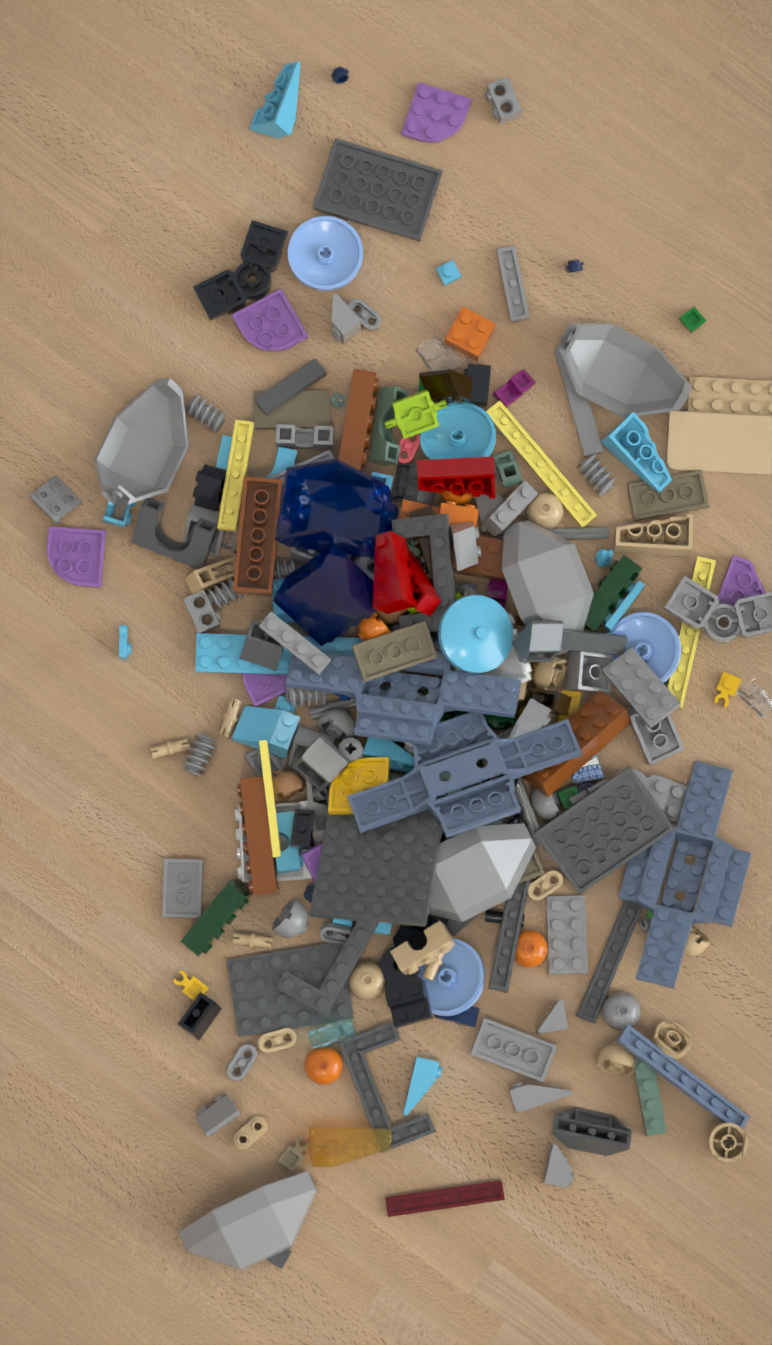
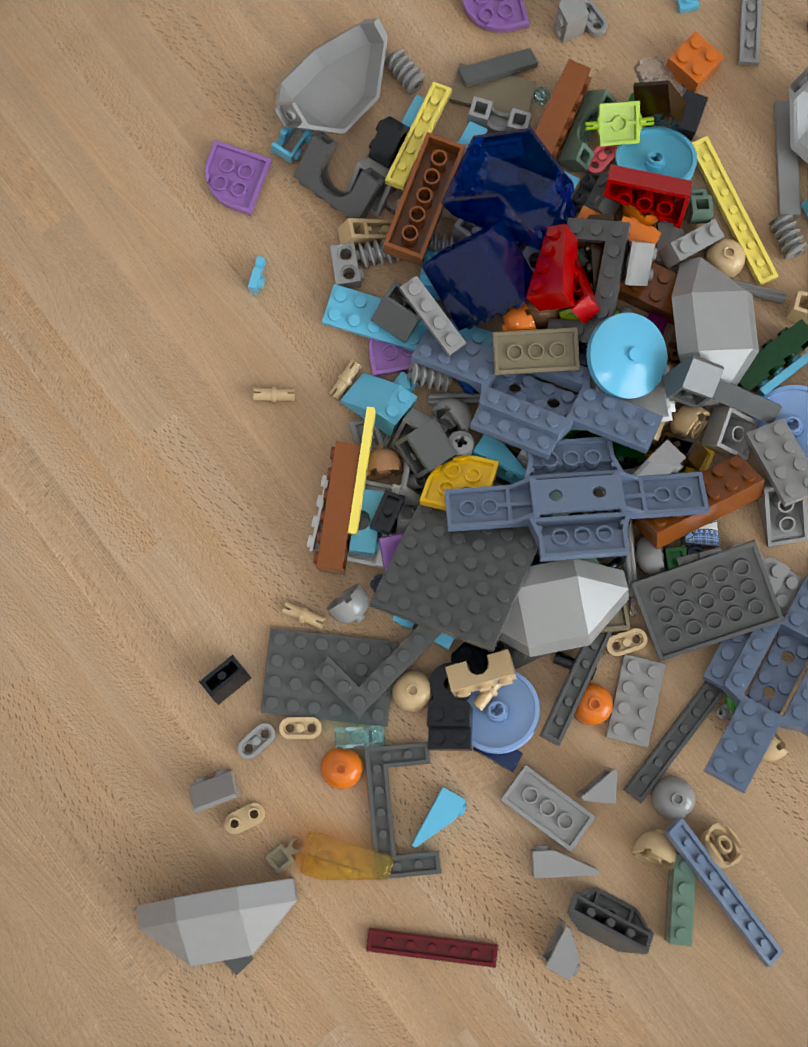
camera: 15 degrees right, 0 degrees up
(55, 499) = (229, 116): light grey hinge -> none
(182, 888) = (246, 541): light grey plate -> none
(192, 987) = (226, 646): yellow plate -> none
(199, 755) = (302, 408): light grey piece -> none
(216, 917) = (272, 580): dark green wedge -> none
(338, 933) = (392, 631): light grey plate -> none
(514, 388) = (726, 129): magenta slope -> none
(604, 557) = (774, 321): medium azure plate -> none
(728, 1142) = (755, 975): tan cylinder -> none

